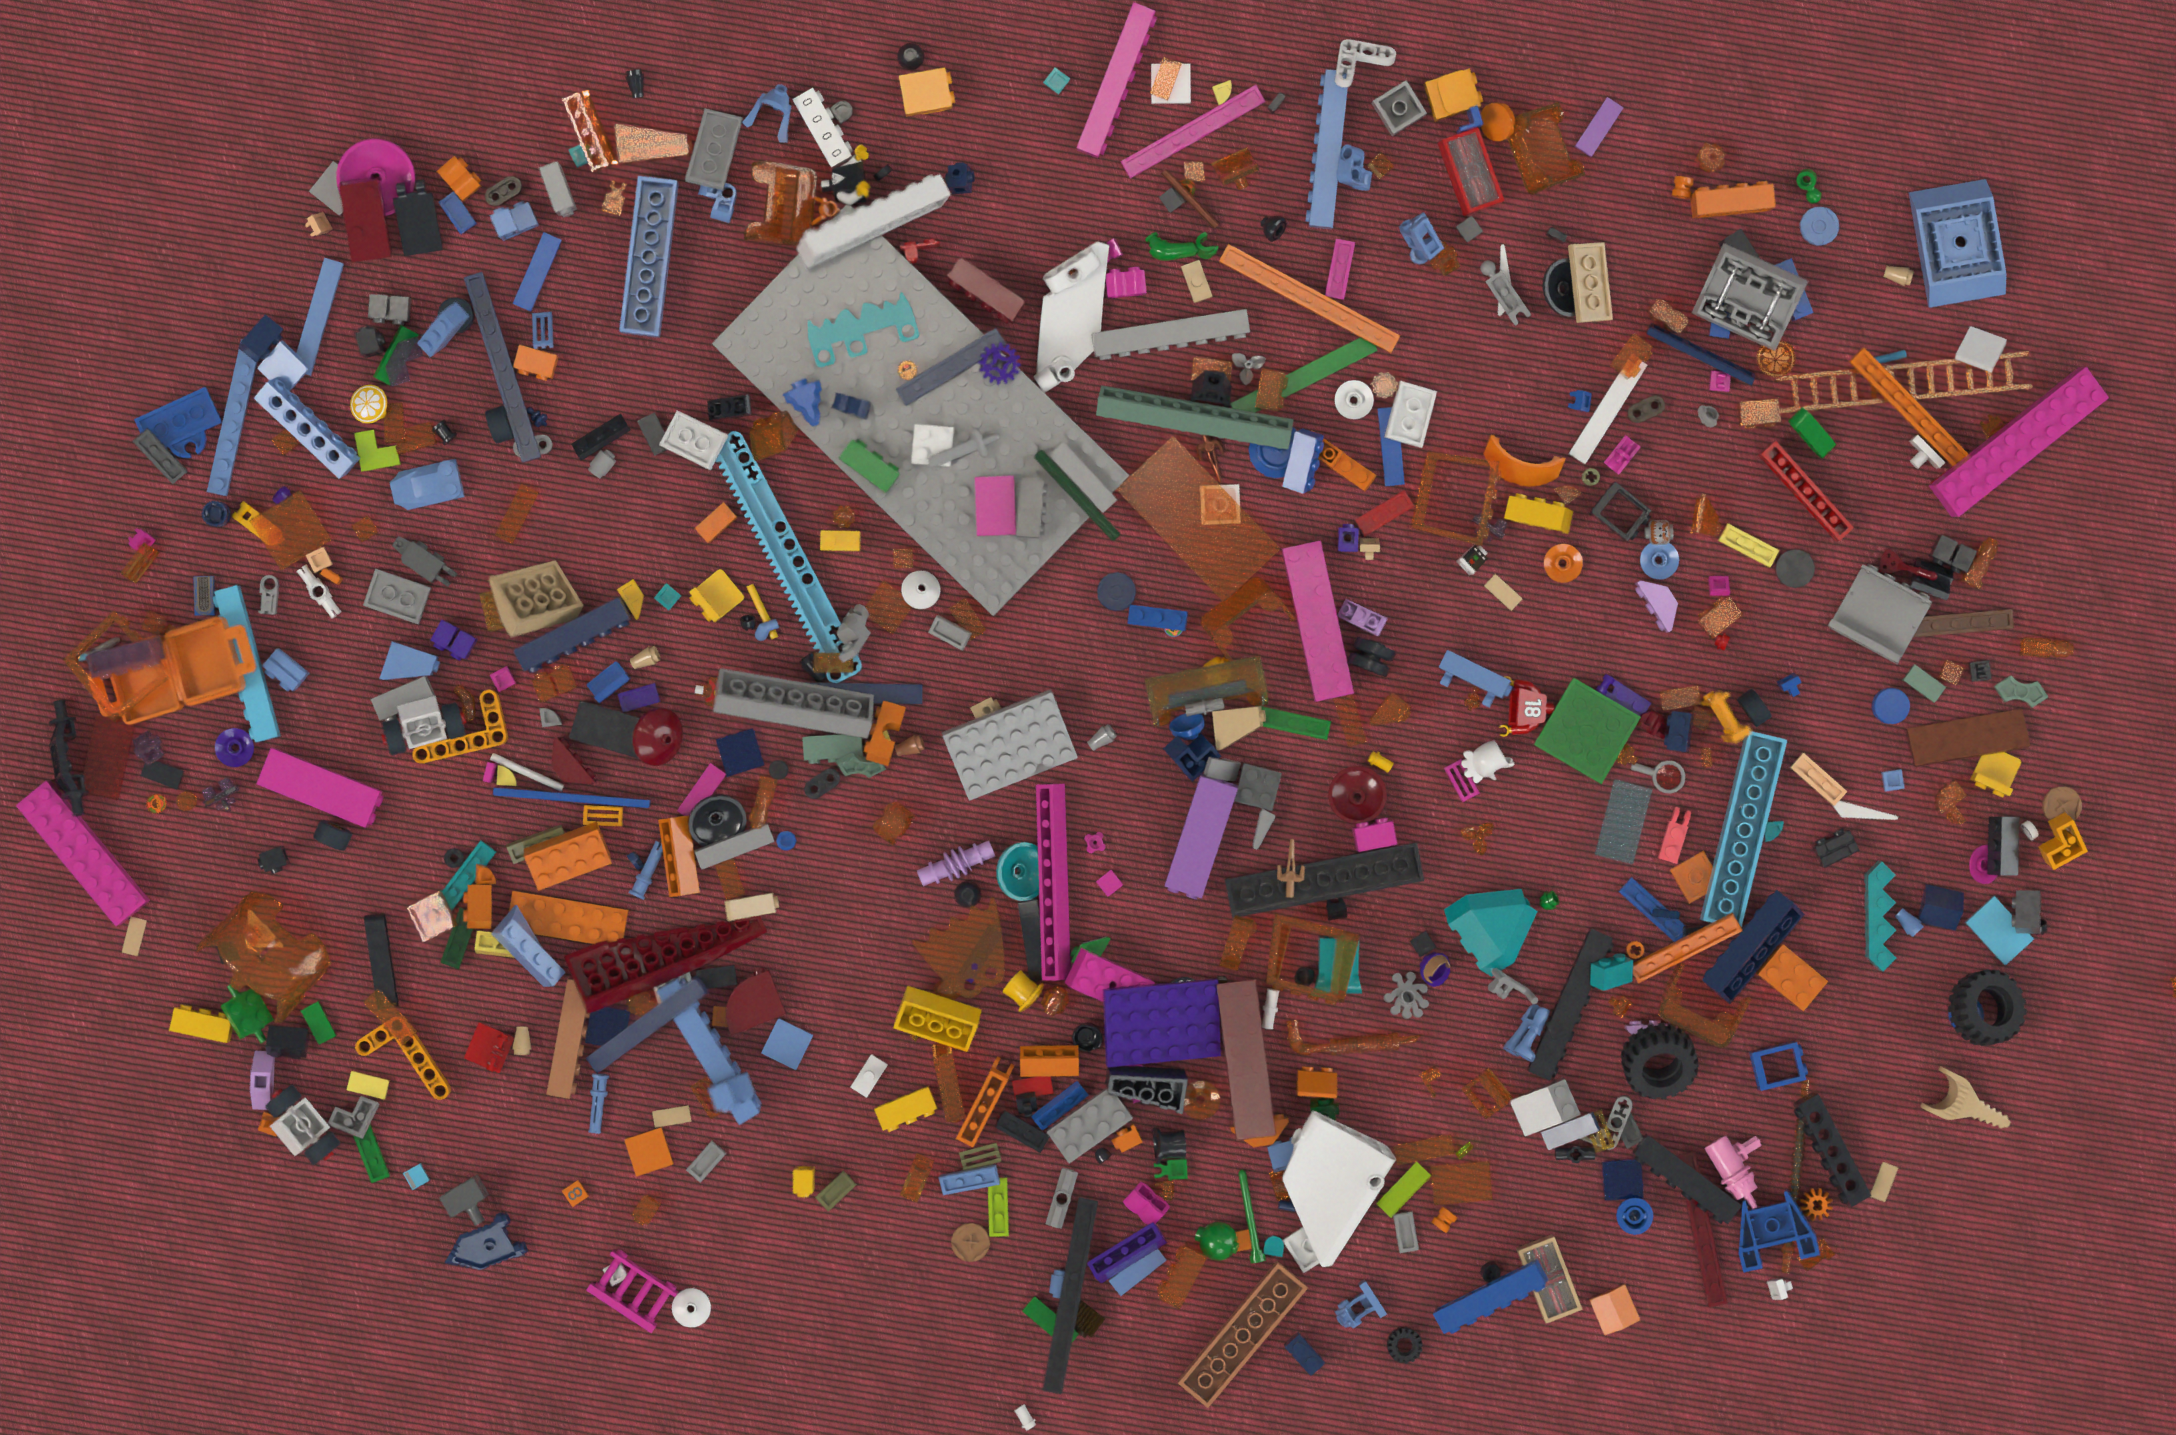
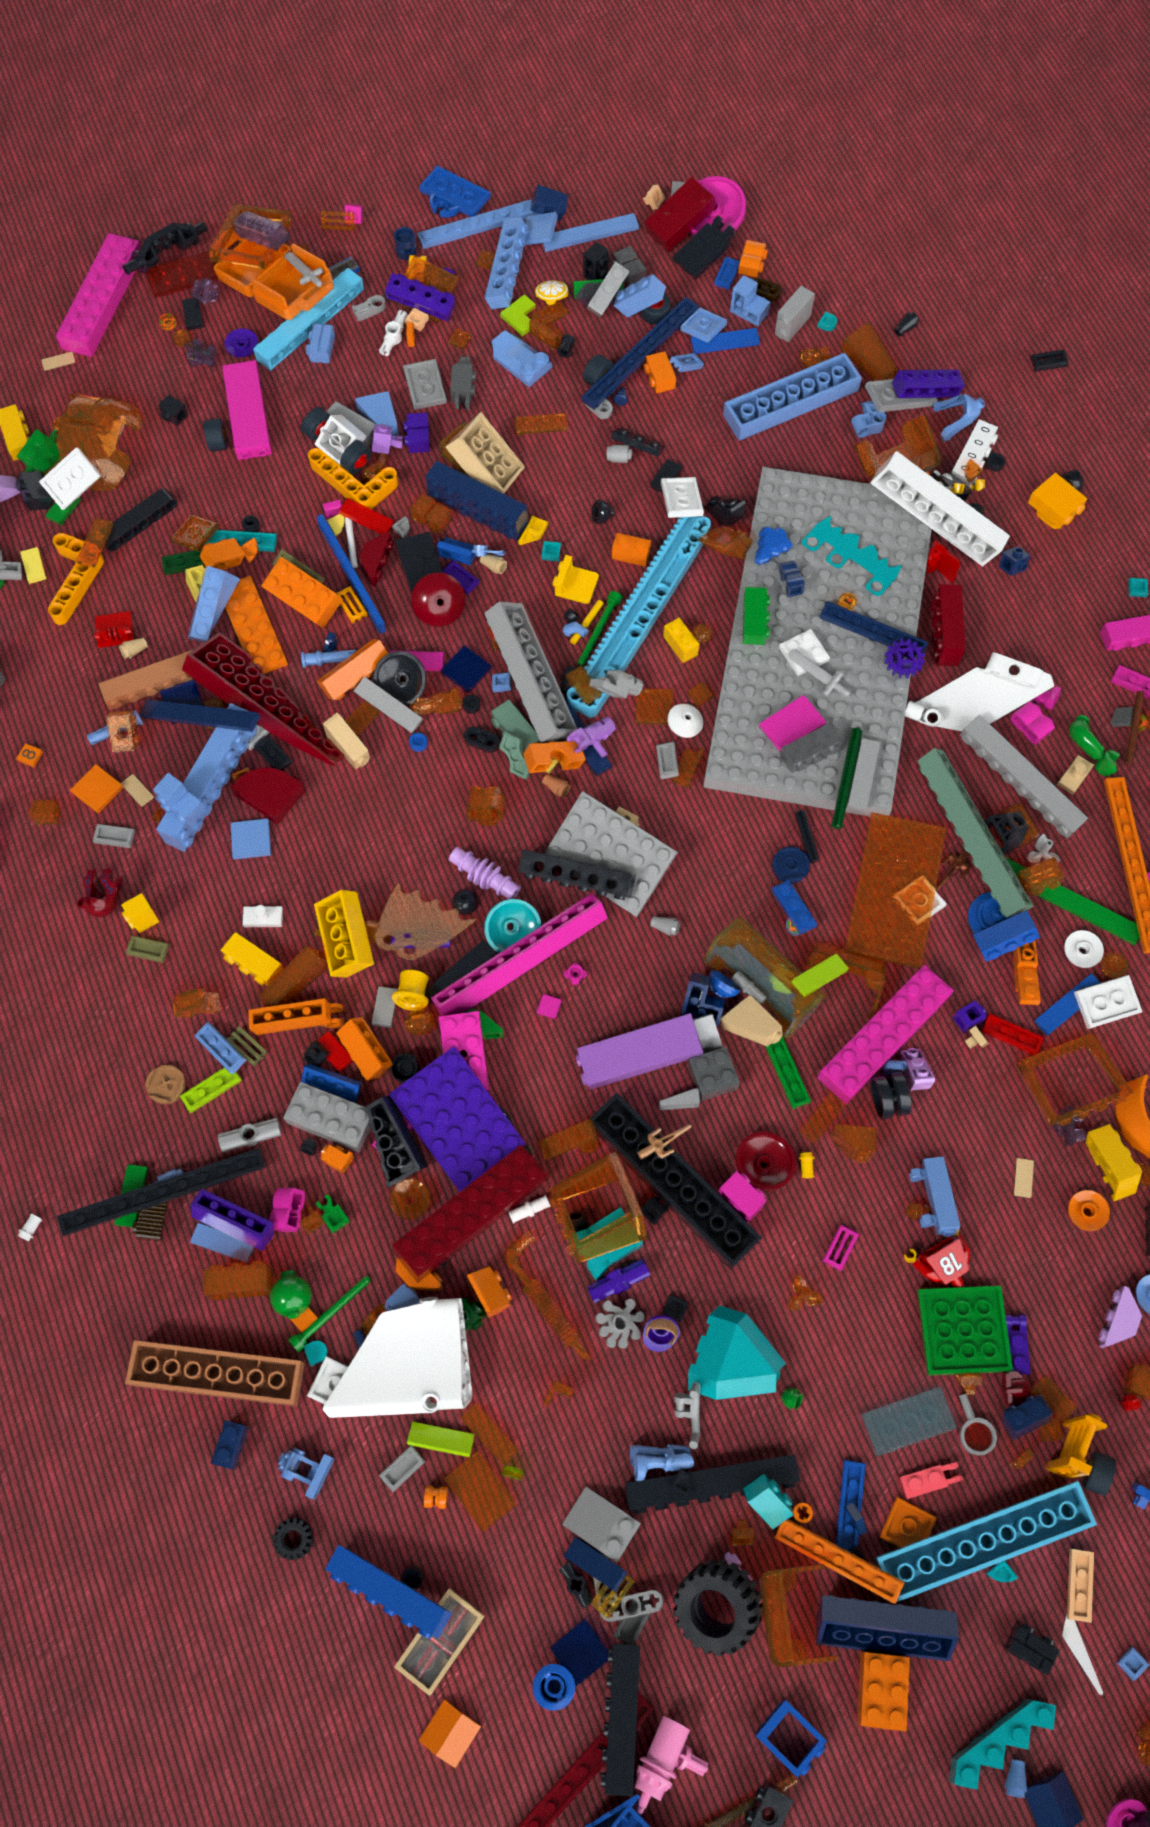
camera: 60 degrees right, 20 degrees down
(160, 455) = (422, 191): dark grey tile -> none
(214, 641) = (309, 275): none -> light grey sword
(302, 543) = (419, 296): none -> dark purple brick
(305, 1002) = (70, 478): none -> white tile
(412, 354) = (608, 289): none -> light grey brick
(443, 678) = (383, 440): none -> medium lavender brick
(503, 679) = (410, 482): dark pink tile -> none
(507, 281) = (703, 325): none -> medium blue tile
(518, 746) = (366, 517): none -> red tile
(590, 131) = (850, 312): clear orange brick -> none
(611, 1099) = (118, 741): none -> clear orange brick
(632, 658) = (481, 550): none -> medium blue plate
(656, 522) = (601, 511): none -> black brick
(722, 118) = (928, 383): none -> dark purple brick
(757, 574) = (613, 600): none -> green piece
(767, 1209) = (95, 902): none -> dark red piece
(775, 731) = (501, 682): none -> medium blue tile
(844, 150) = (972, 470): none -> clear orange tile
(886, 685) = (592, 735): none -> medium lavender piece
(1013, 775) = (624, 880): none -> black brick
(1020, 1021) = (384, 1008): none -> light grey tile
(1022, 1131) = (289, 1065): black hinge -> none
(1100, 559) = (807, 836): none -> black axle
(1168, 1144) = (352, 1195): black piece -> none
(1239, 648) = (820, 975): none -> lime tile
(1349, 635) = (893, 1065): none -> medium blue arm
(1373, 975) = (618, 1281): none -> dark purple piece
(1473, 559) = (1032, 1129): slope -> none
(1485, 761) = (872, 1253): white piece -> none
(1493, 1087) = (588, 1461): clear orange tile -> none

